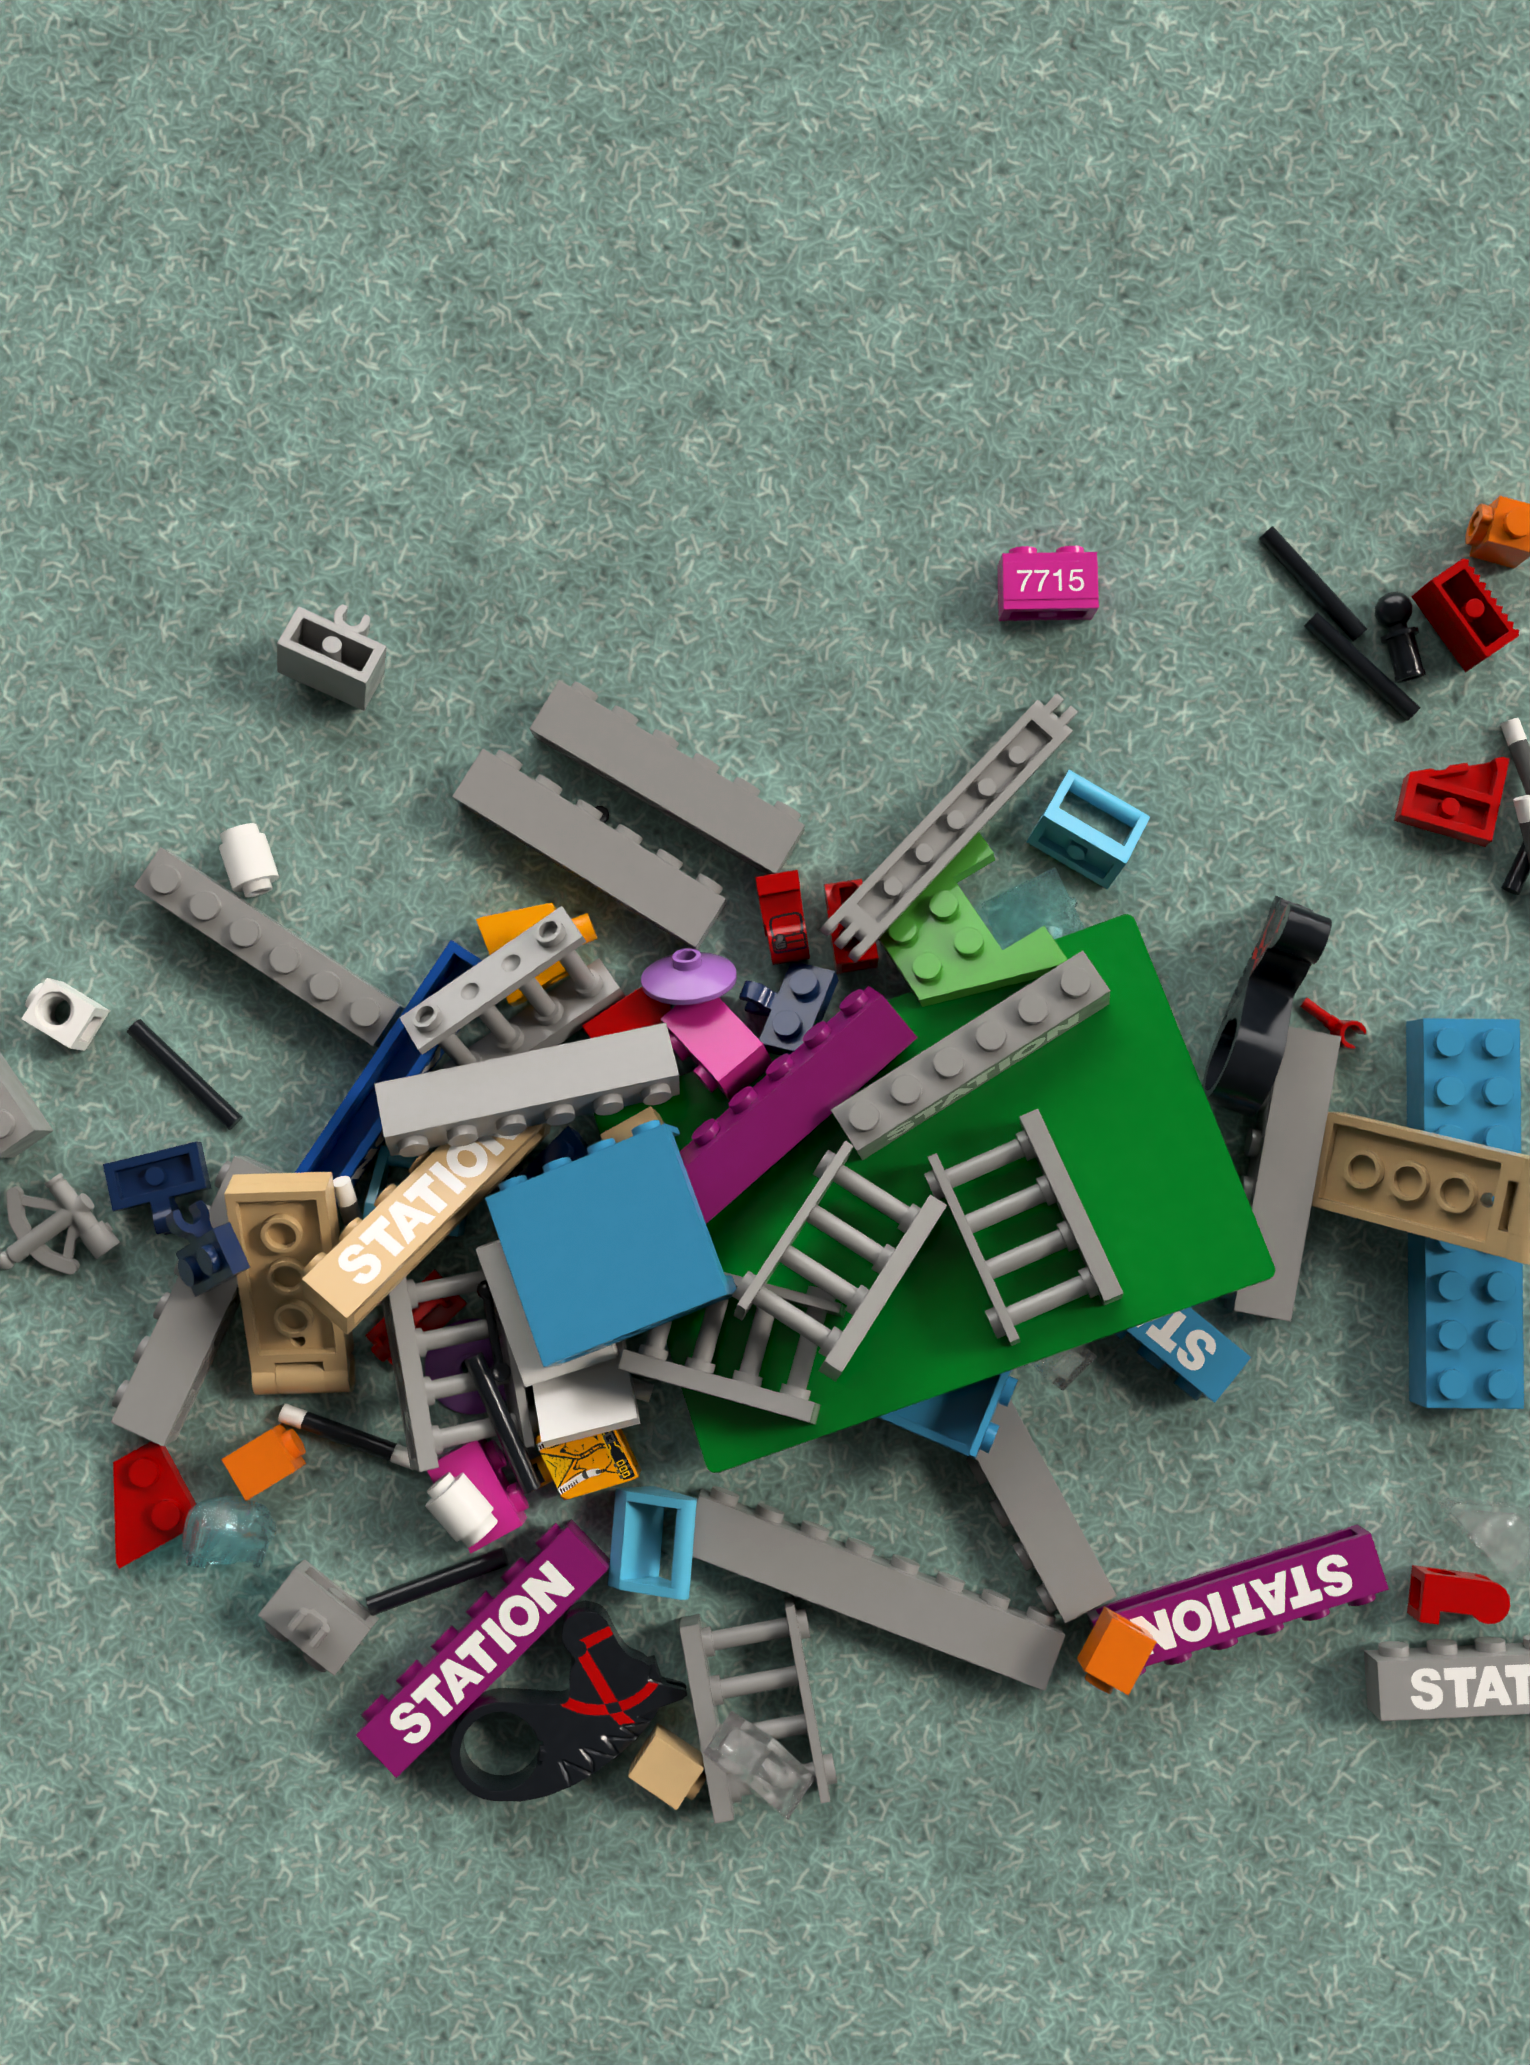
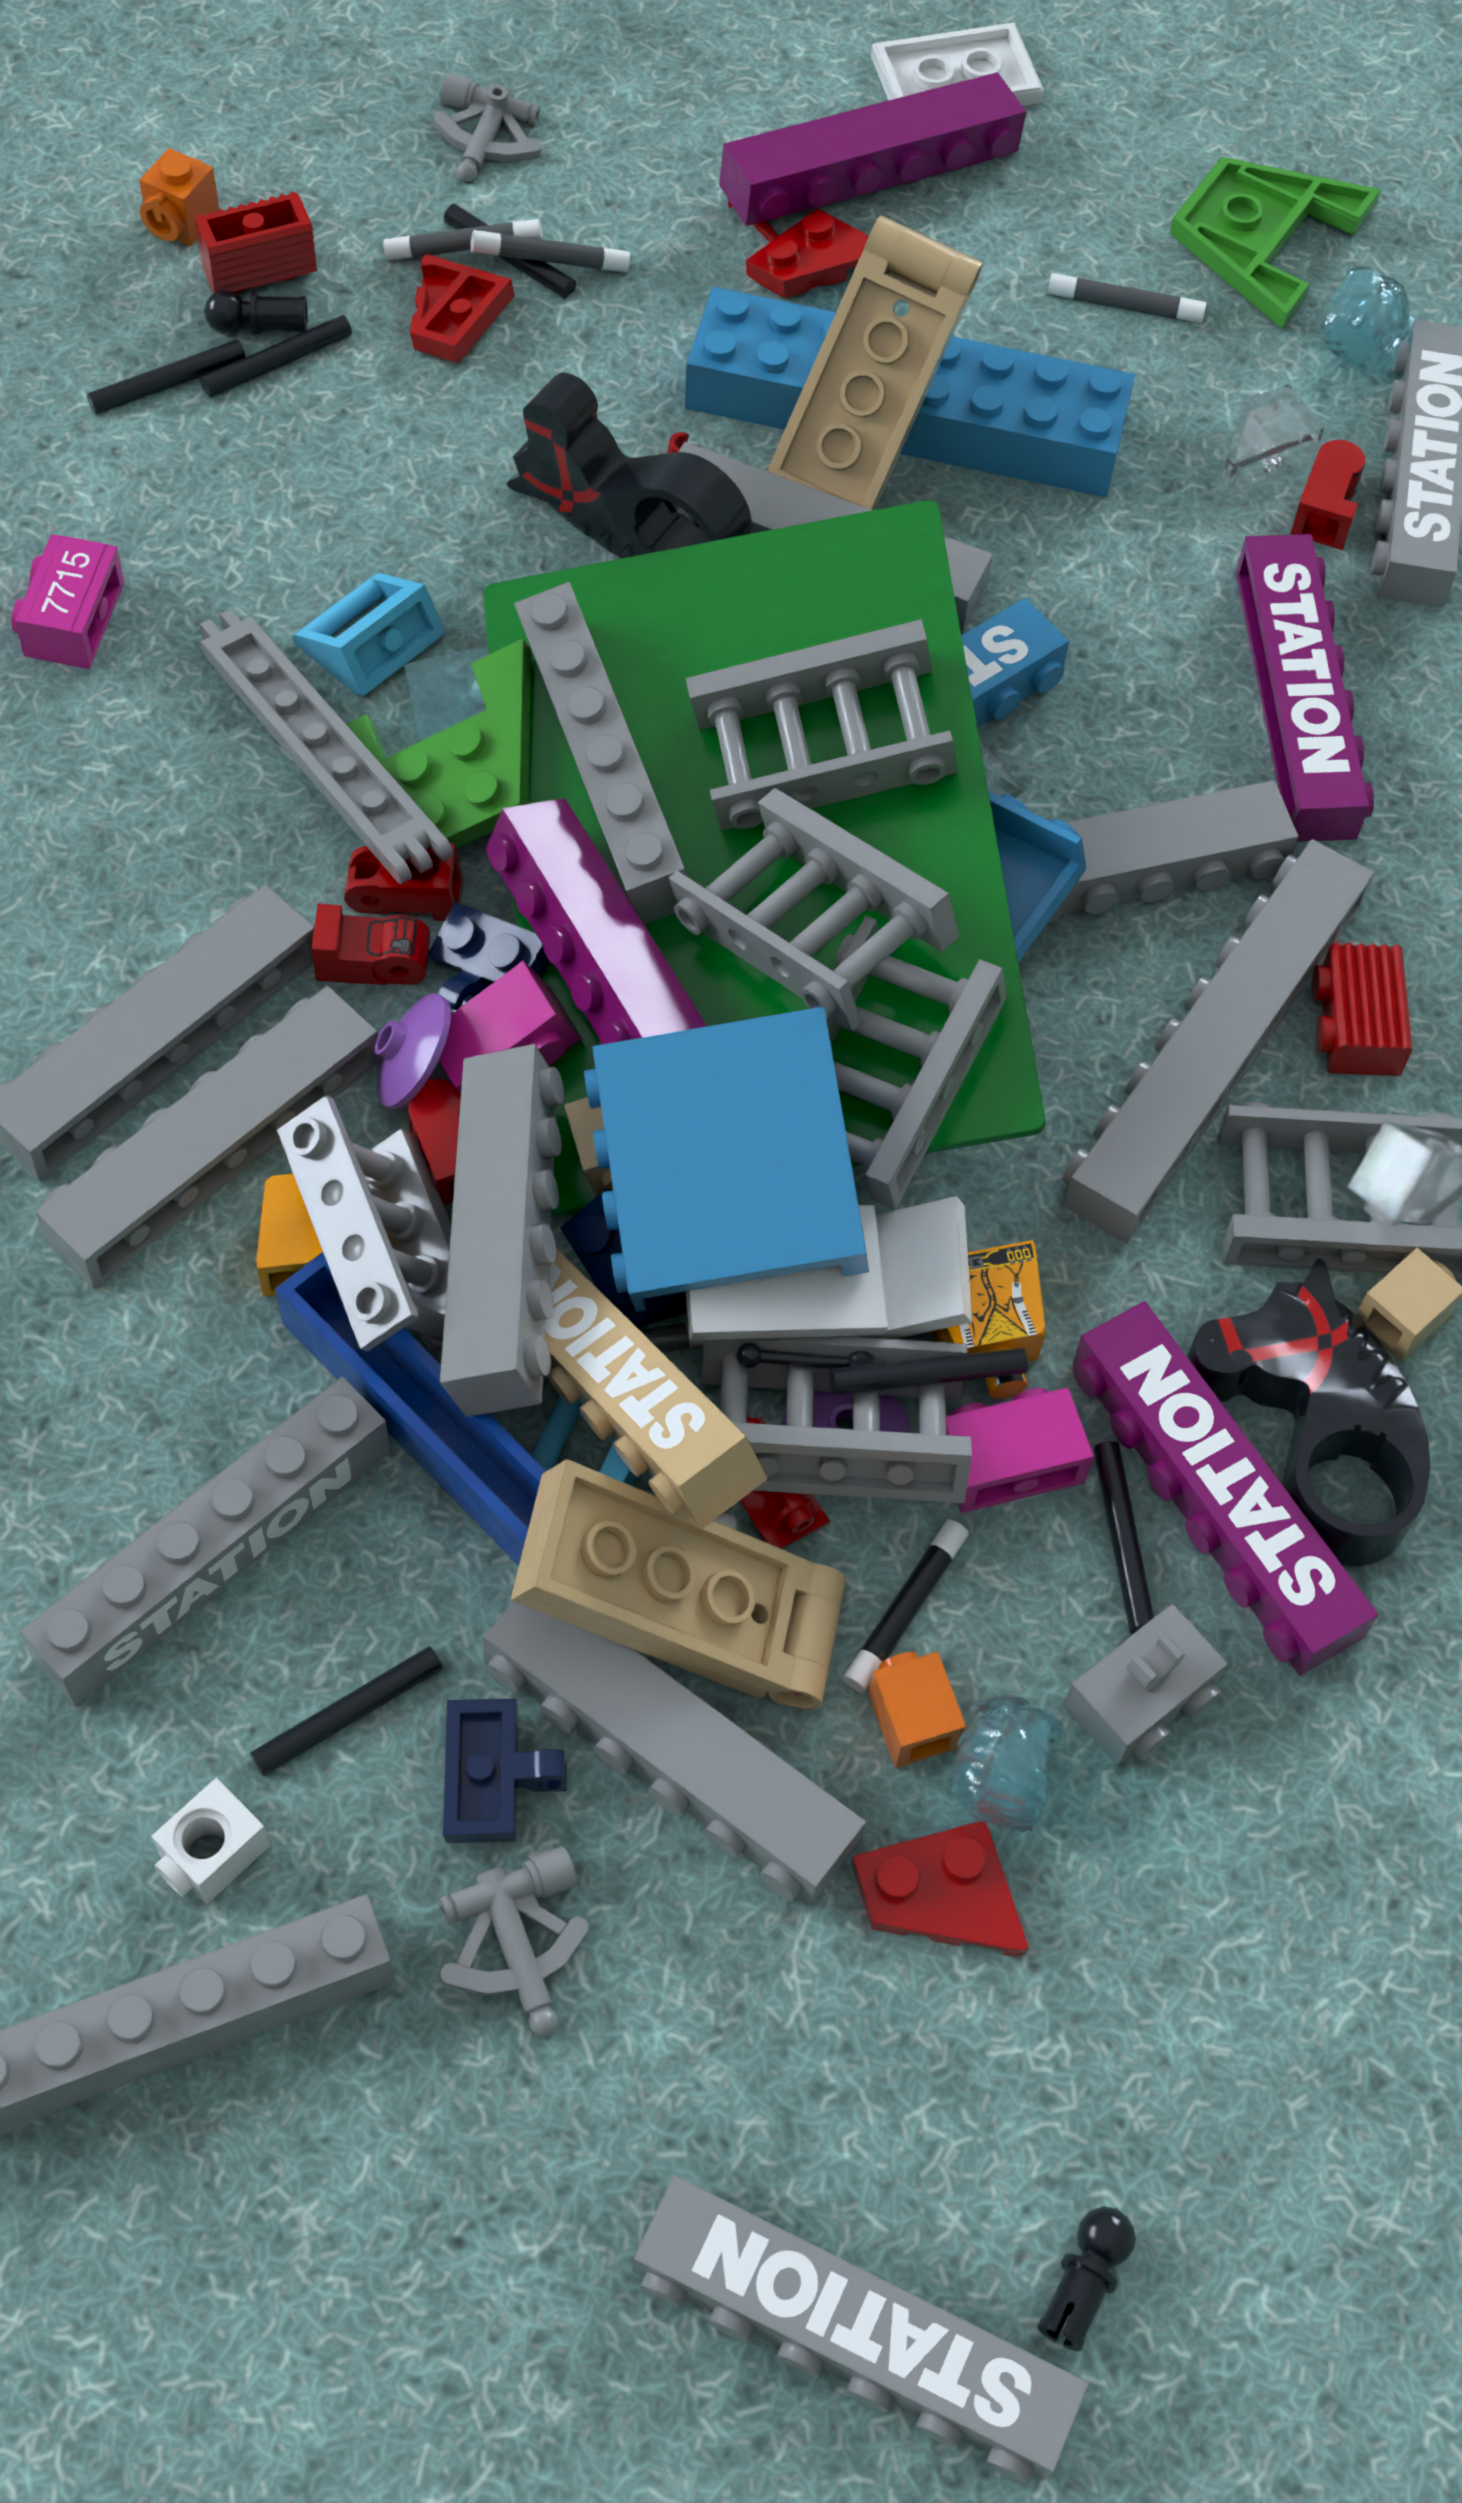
camera: 80 degrees left, 25 degrees down
(212, 1253) = (614, 1661): dark blue plate -> none
(248, 860) = (72, 1546): white brick -> none
(461, 1508) = (1031, 1437): white brick -> none
(639, 1540) = (1111, 1275): medium azure tile -> none
(924, 1696) = (1363, 1009): none -> red brick
(1115, 1652) = (1338, 778): orange brick -> none

